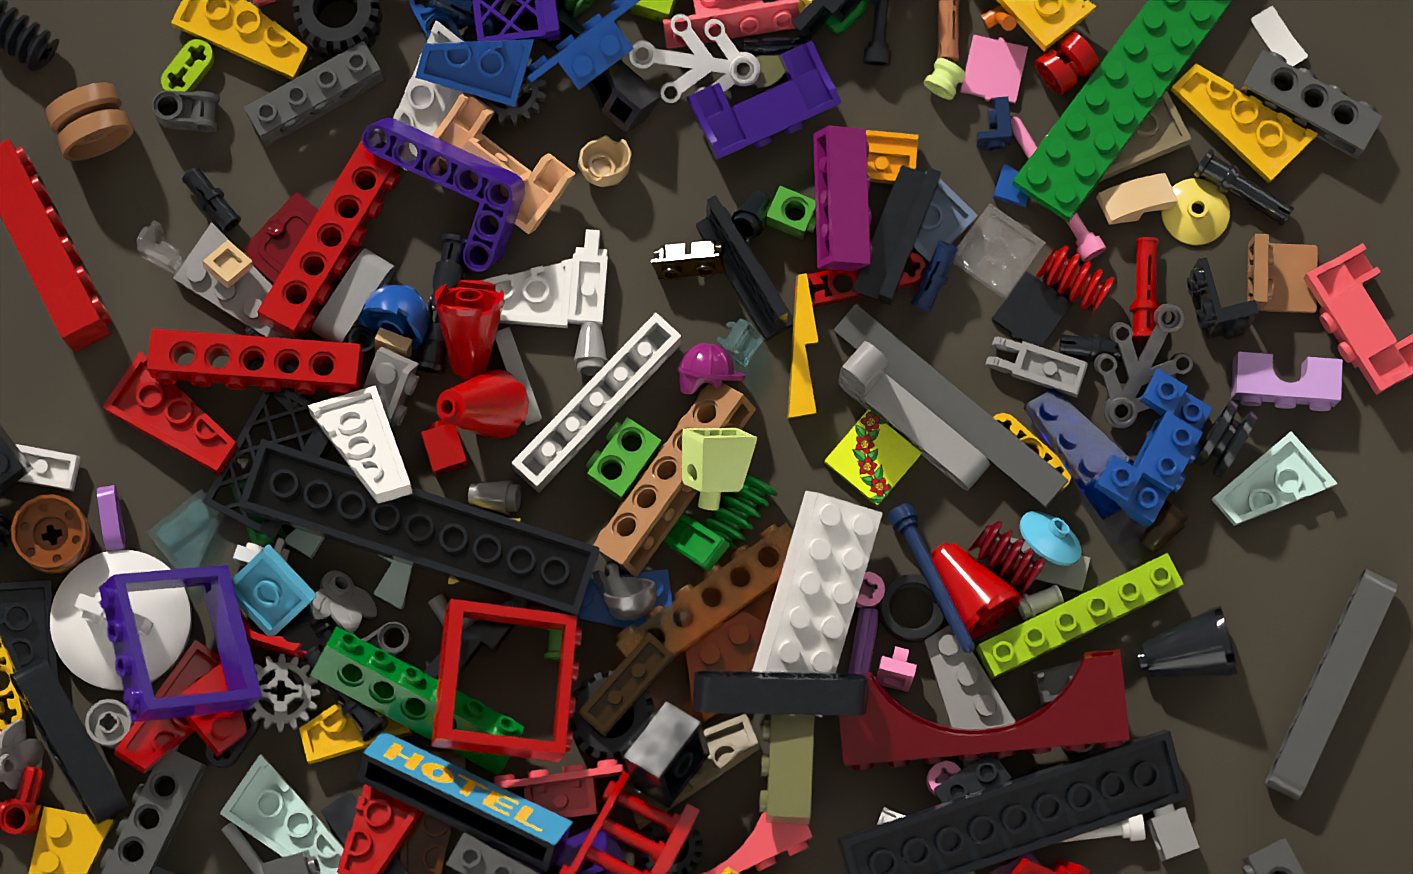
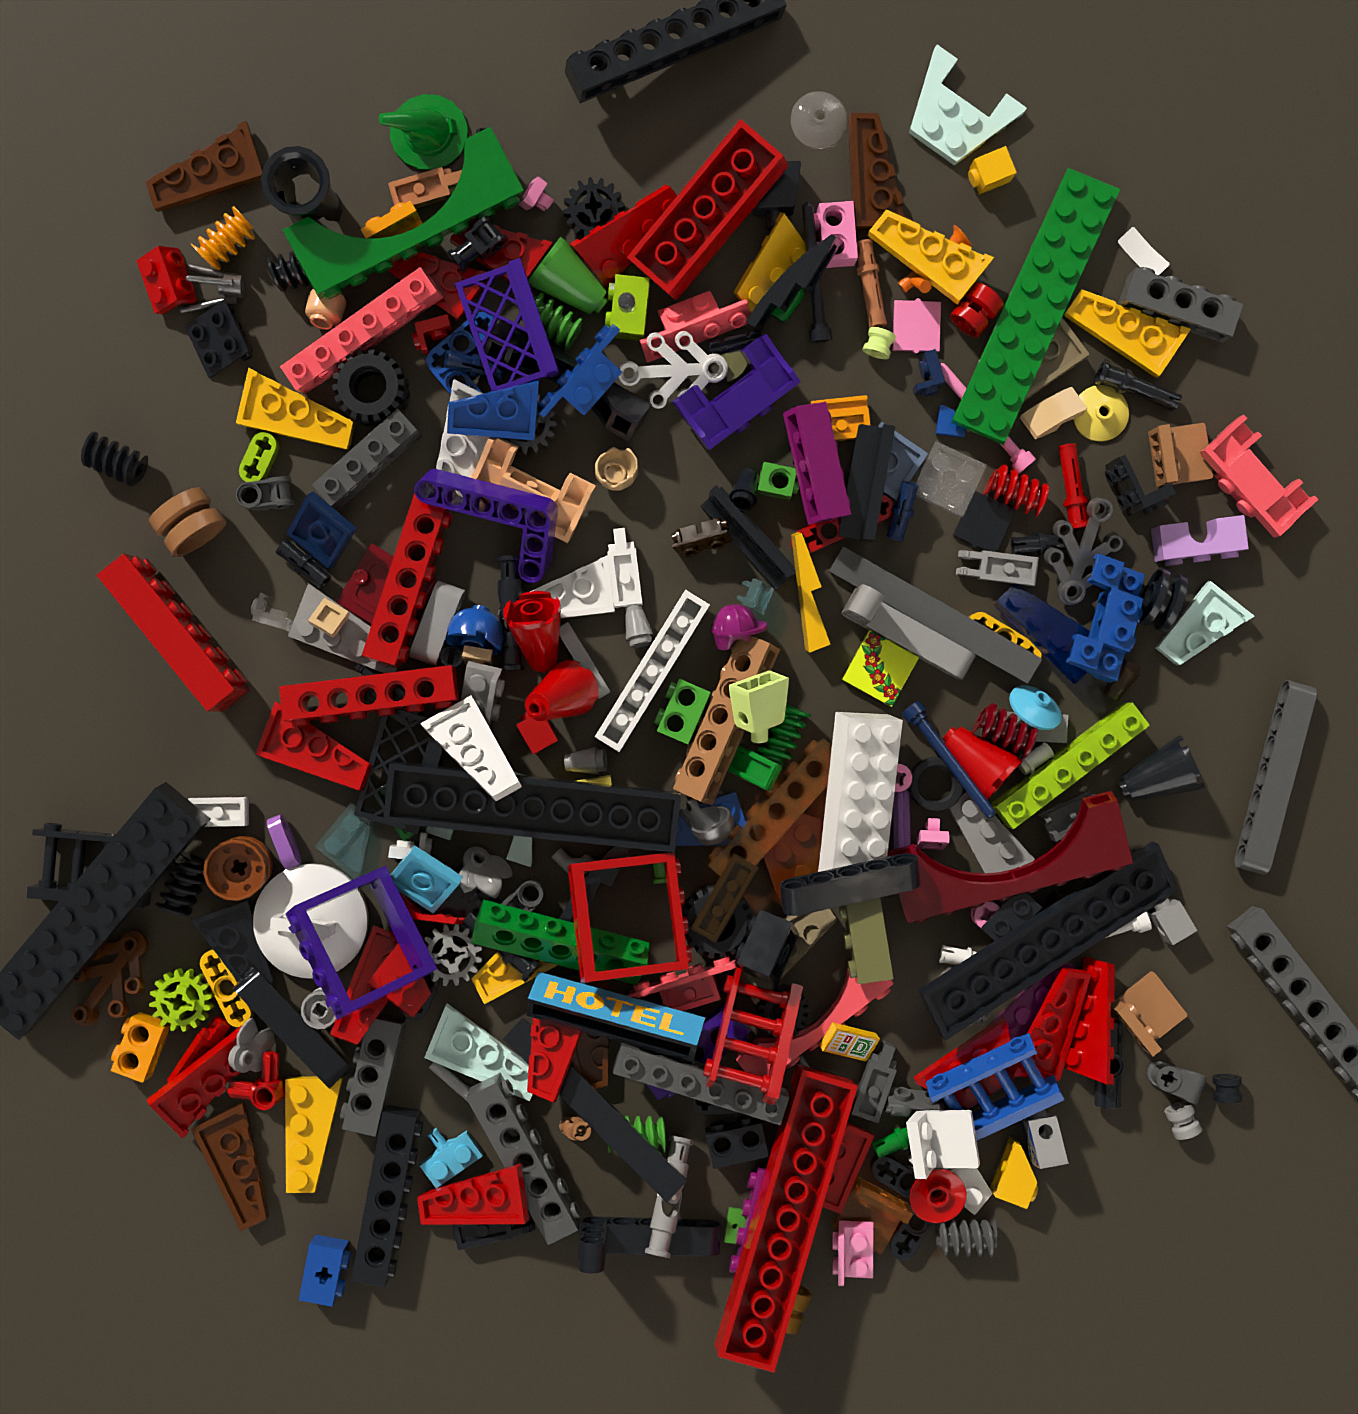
camera: 10 degrees left, 10 degrees up
(241, 163) = (321, 530): none -> dark blue tile

